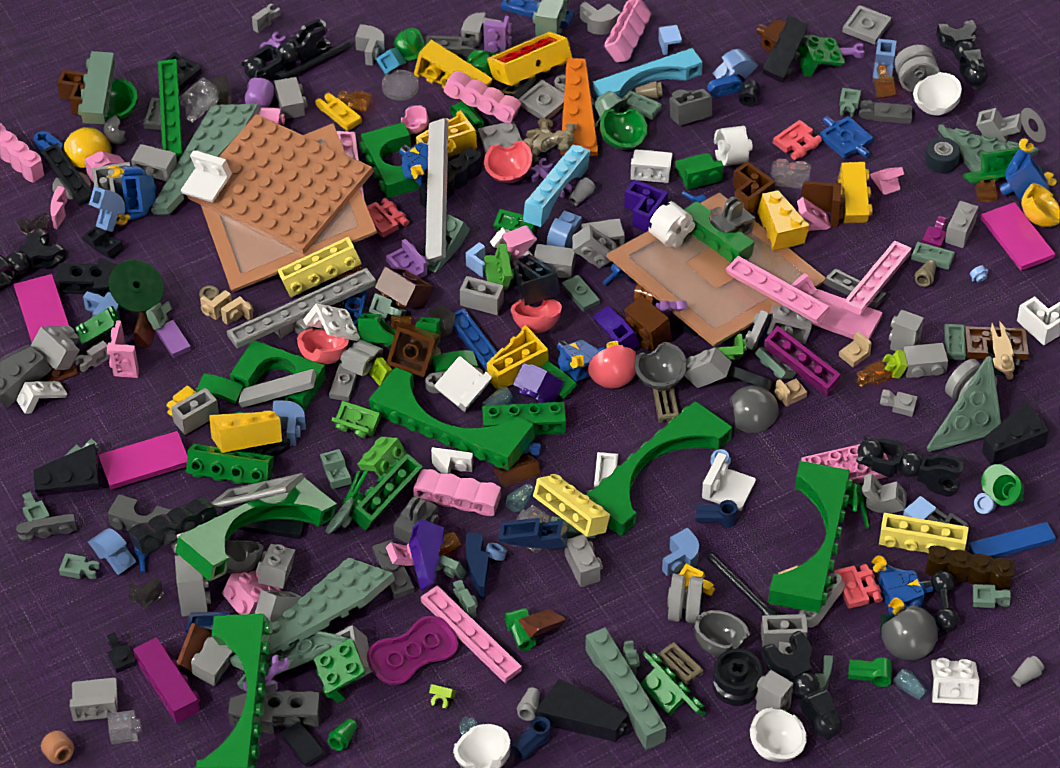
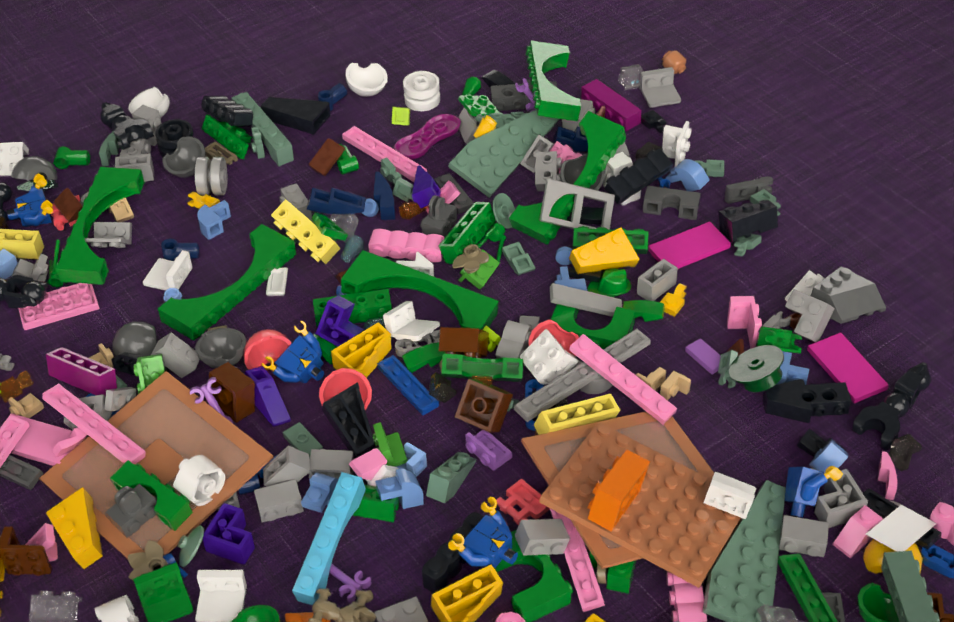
camera: 175 degrees right, 5 degrees down
(73, 150) = (901, 529): none -> white sticker
(106, 589) = (676, 142): none -> white bracket
(112, 132) = (866, 570): dark grey hair -> none
(209, 292) = (686, 404): dark tan tile -> none
(267, 294) = (623, 379): none -> bright pink plate
(283, 461) = (563, 255): none -> medium blue tile
(305, 151) = (617, 489): none -> orange brick
(338, 620) = (486, 125): none -> yellow cone
(356, 419) = (509, 291): bright green bracket -> none
(381, 159) = (542, 537): none -> light grey brick
(389, 443) = (471, 259): none -> dark tan plate
(409, 727) = (421, 91): none -> white wheel
(437, 190) = (464, 500): tile -> none
(467, 723) = (379, 99): clear light blue plate -> none
(481, 295) = (403, 413): light grey brick -> none
(488, 224) = (403, 486): none -> medium blue brick
(508, 163) = (388, 570): coral cylinder -> none
(527, 707) = (335, 115): light grey cone -> none
(544, 495) = (328, 227): none -> green wing
(582, 191) = (297, 558): light grey cone -> none
(671, 708) = (227, 110): none -> black brick
(677, 193) = (190, 545): none -> sand green dish
(714, 191) = (146, 561): none -> dark tan plate
(750, 186) = (102, 566): reddish brown brick -> none
(757, 602) = (147, 189): black piece -> none
(800, 527) = (112, 233): none -> light grey bracket
(855, 579) = (68, 205): none -> copper slope
(910, 684) = (43, 151): clear light blue cone -> none

